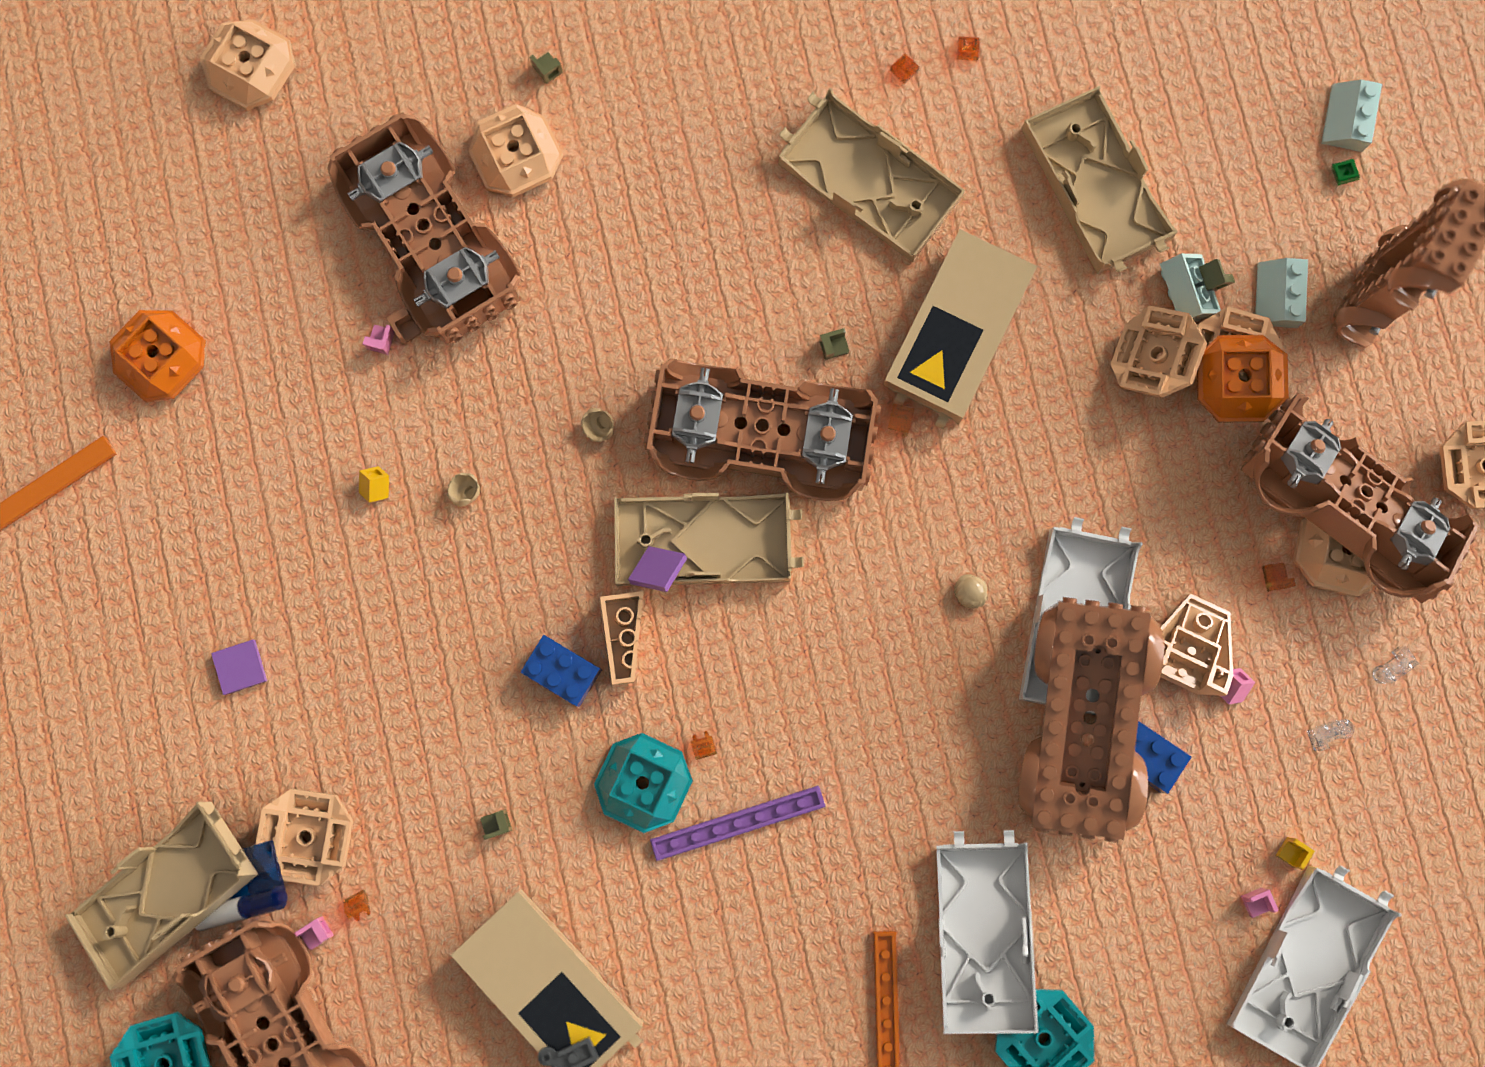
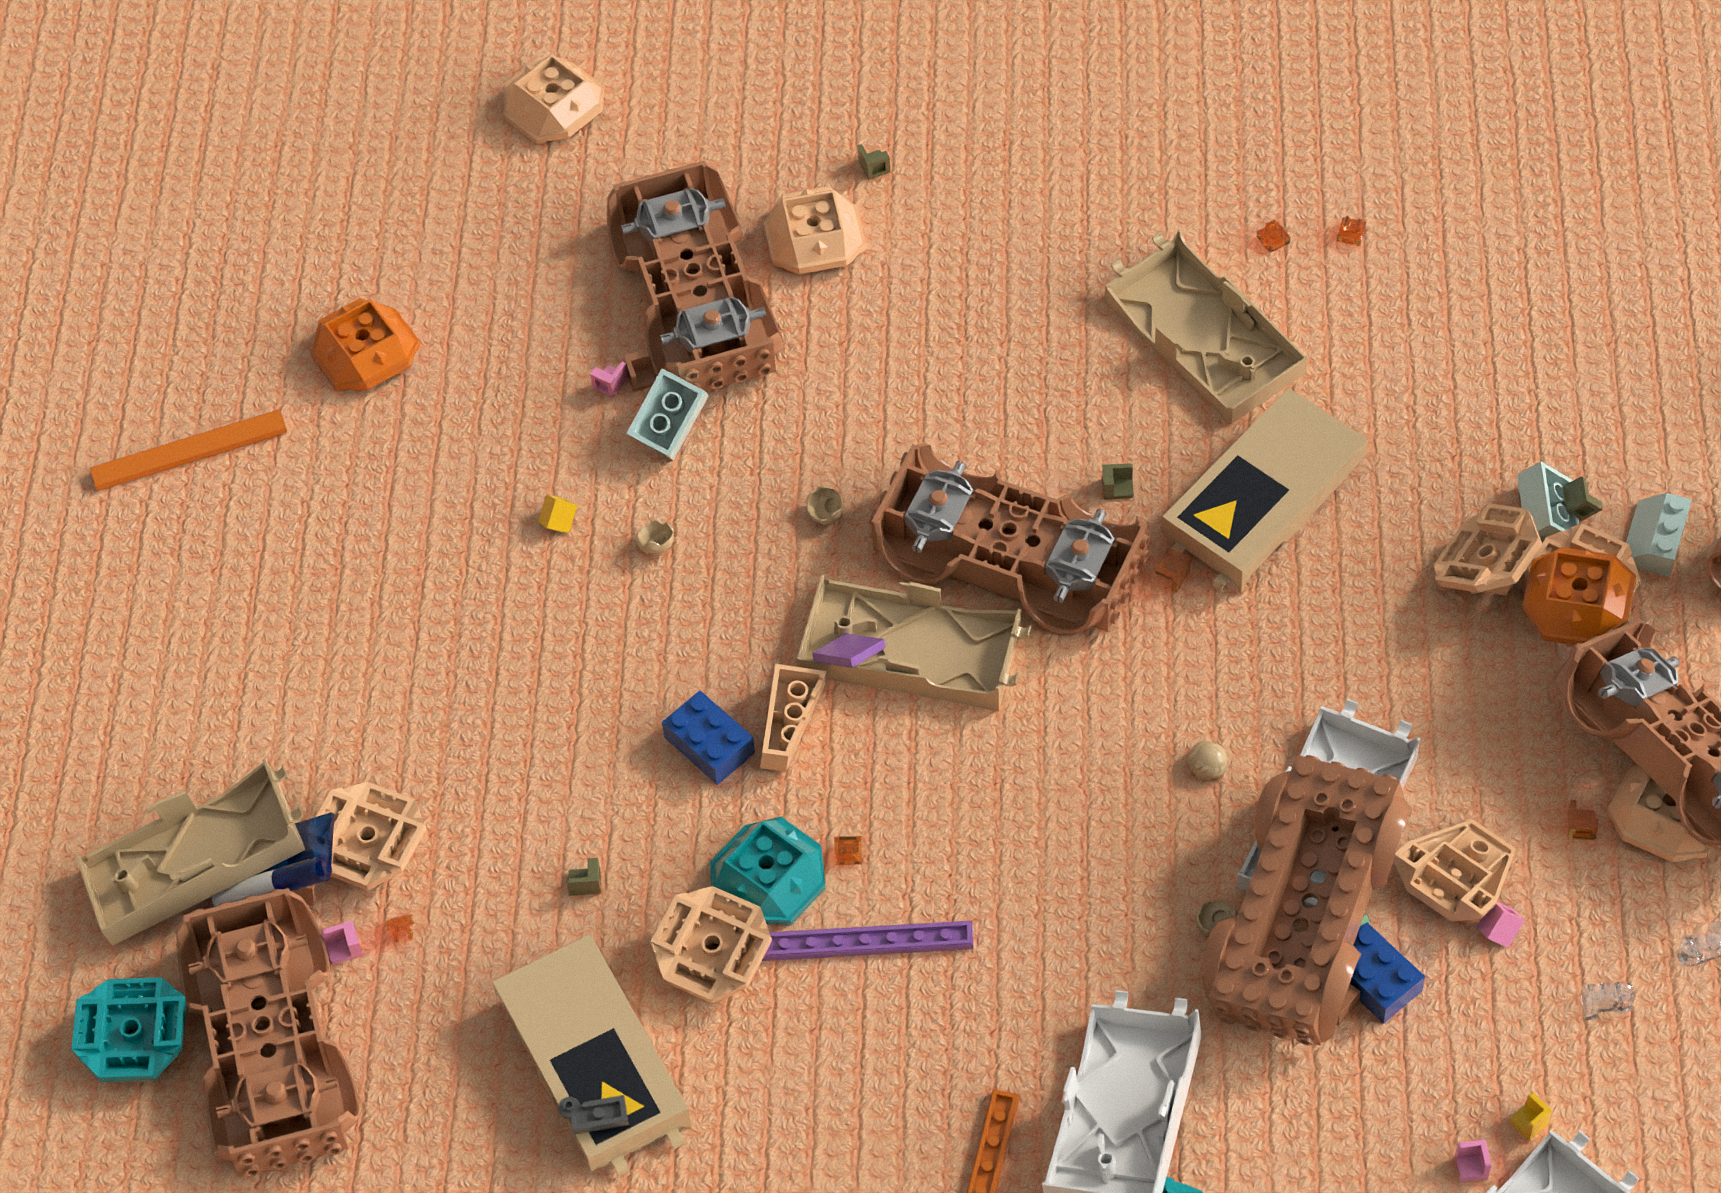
camera: 20 degrees right, 25 degrees down
(239, 667) = (349, 661): medium lavender tile -> none
(441, 373) = (667, 414): none -> light aqua slope
(614, 892) = (703, 919): none -> light nougat piece
(1013, 738) = (1211, 913): none -> tan hair
(1098, 180) = (1467, 382): tan piece -> none

